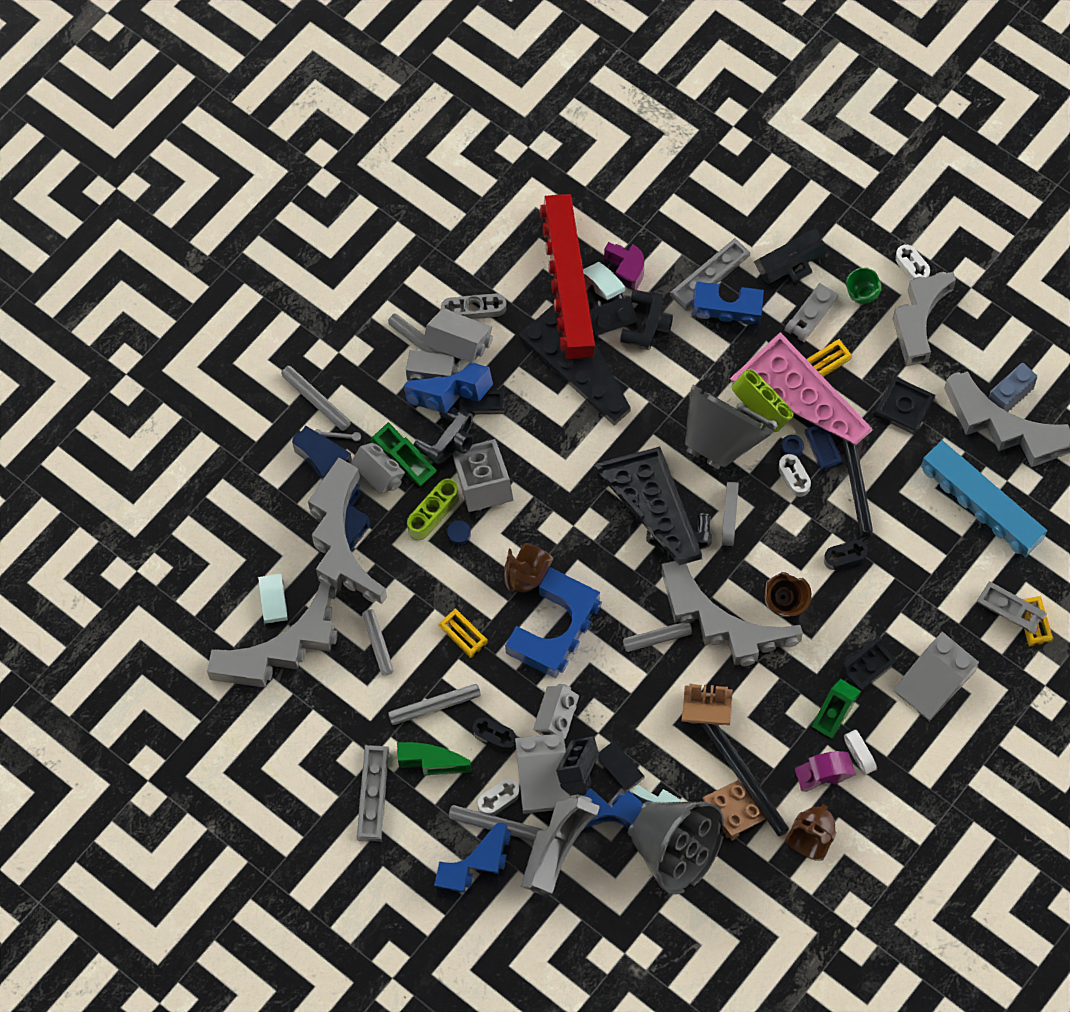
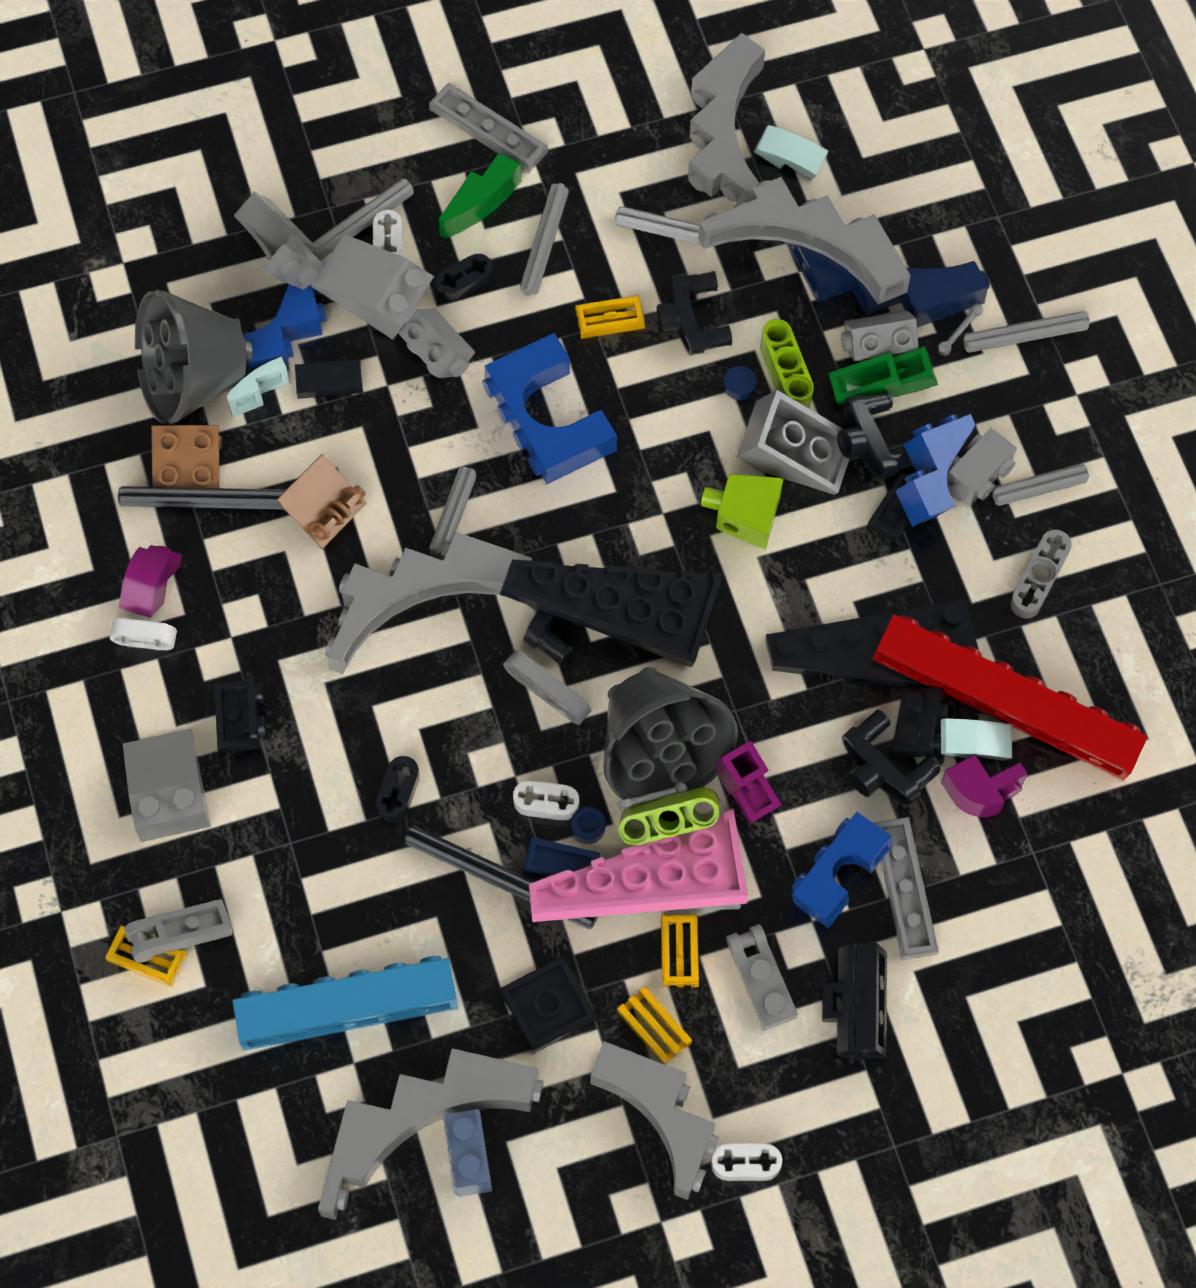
camera: 120 degrees right, 0 degrees up
(437, 590) = (680, 316): none -> black connector
(457, 335) = (1003, 515): light grey brick -> none
(486, 858) = (321, 179): blue arch -> none
(527, 569) = (635, 413): reddish brown helmet -> none
(541, 476) = (746, 506): none -> lime torso
(576, 766) = (347, 308): black piece -> none
(712, 375) = (744, 778): none -> magenta brick
(795, 591) = (386, 670): reddish brown helmet -> none
(812, 833) = (93, 520): reddish brown helmet -> none
(836, 708) = (215, 645): green slope -> none
(863, 285) = (751, 1063): green hair -> none
(880, 331) = (634, 1002): none -> yellow tile

